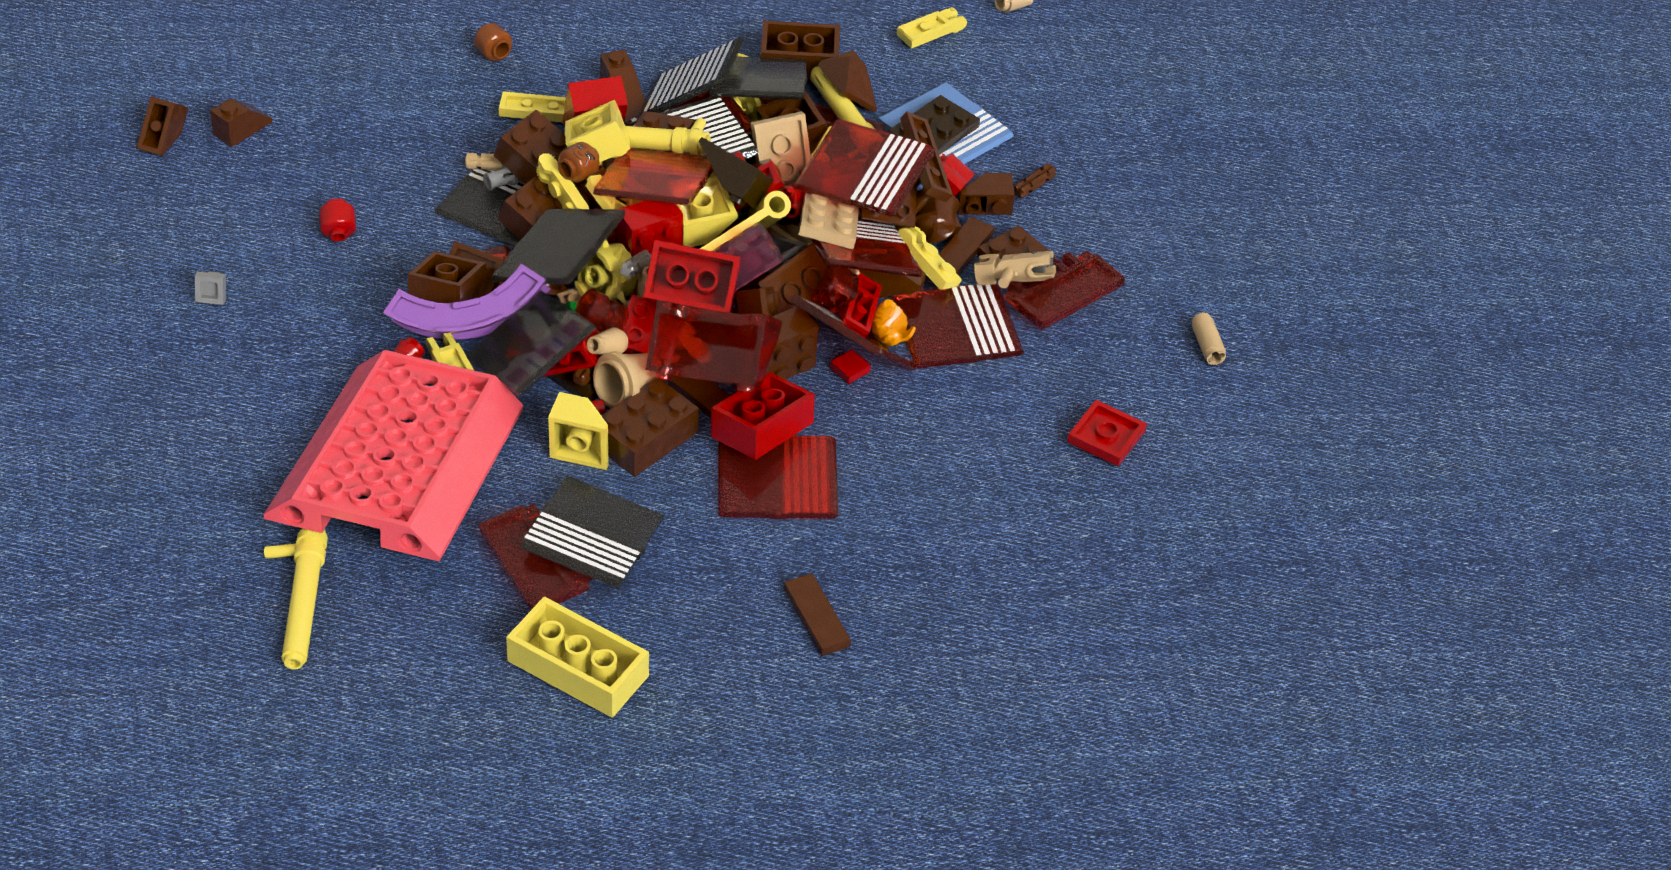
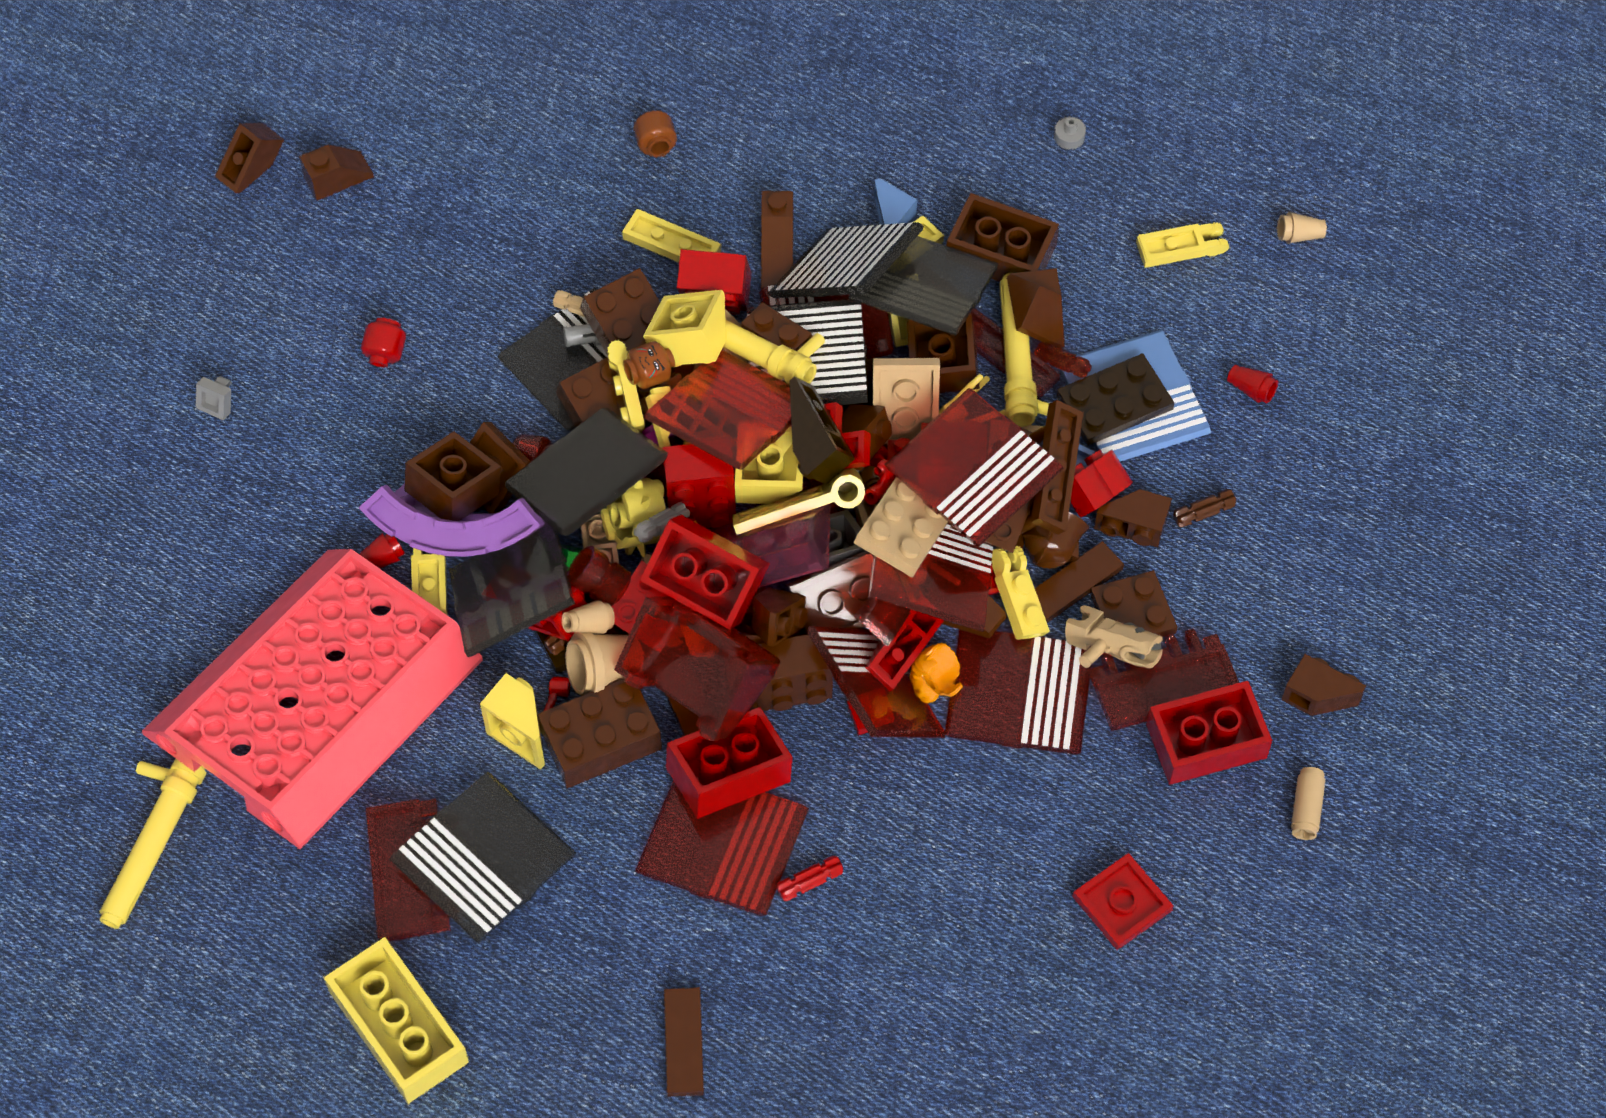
camera: 25 degrees right, 15 degrees up
(699, 43) = (893, 204): none -> medium blue slope
(860, 481) = (809, 878): none -> red axle
(883, 112) = (1063, 359): none -> clear red axle
(1029, 97) = (1254, 383): none -> red cone
(1115, 309) = (1208, 732): none -> red brick
(1181, 265) = (1321, 689): none -> reddish brown slope

